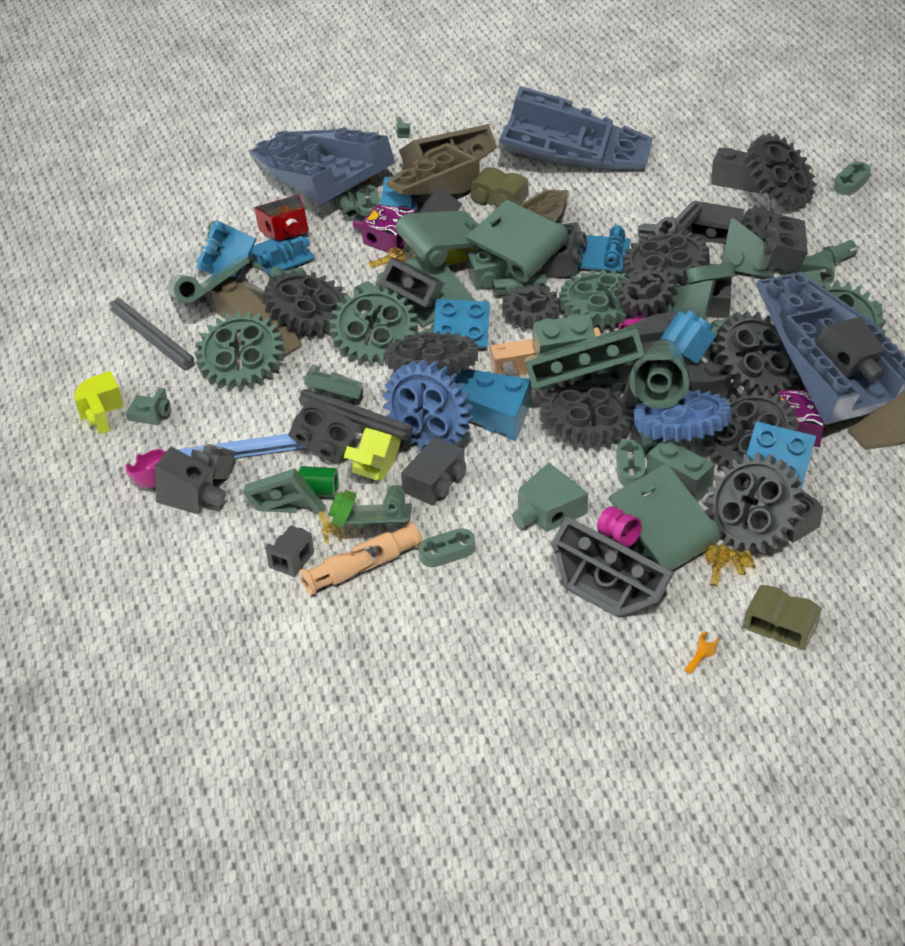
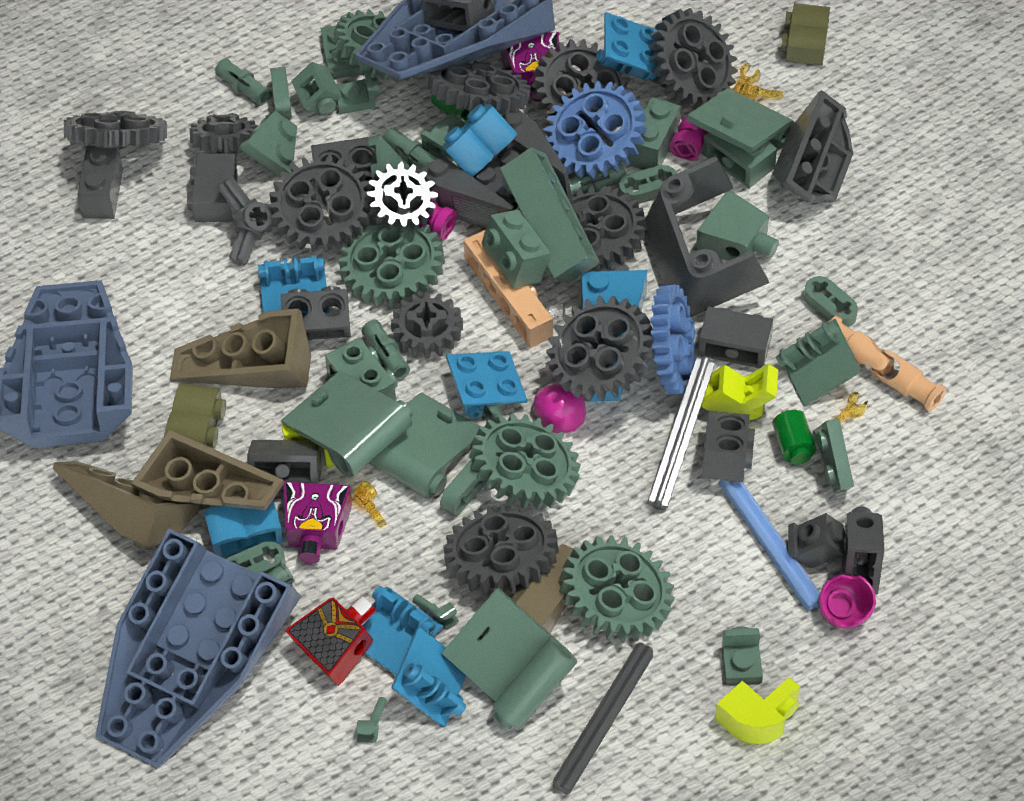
camera: 110 degrees left, 10 degrees up
(290, 551) = (902, 423): dark grey brick -> none
(321, 382) = (632, 477): sand green wing -> none
(341, 507) = (830, 389): bright green plate -> none
(403, 129) = (64, 583): sand green hand -> none
(411, 282) = (454, 426): dark grey brick -> none
(519, 238) = (344, 334): sand green door -> none
(531, 448) = (701, 273): none -> dark grey windscreen
(615, 523) = (782, 138): dark pink wheel -> none
(660, 376) = (566, 130): sand green cone -> none
(704, 649) = (860, 85): light orange hand -> none
(709, 272) = (358, 140): sand green beam -> none
(785, 243) = (276, 92): dark grey brick -> none
(852, 178) = (79, 85): sand green beam -> none

